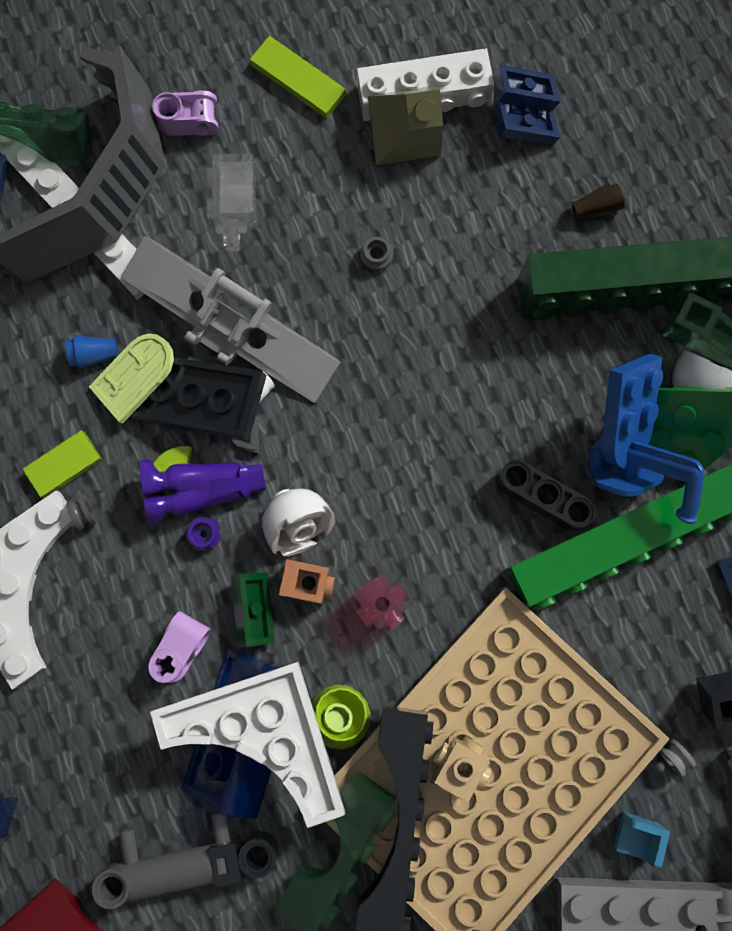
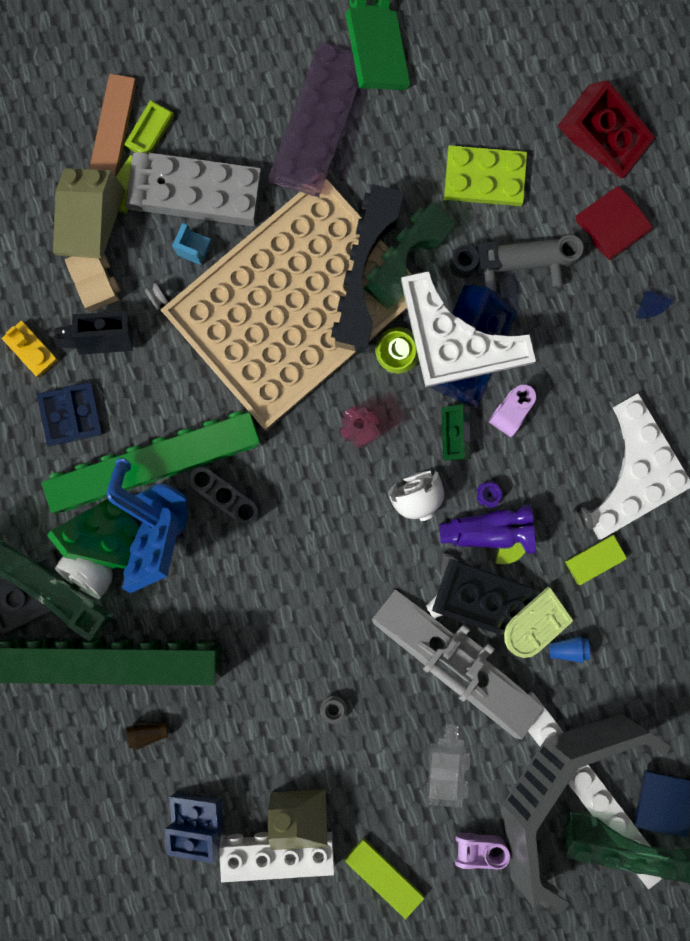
camera: 175 degrees left, 5 degrees up
(293, 579) = (423, 444): nougat brick -> none
(465, 781) = (316, 294): tan brick -> none

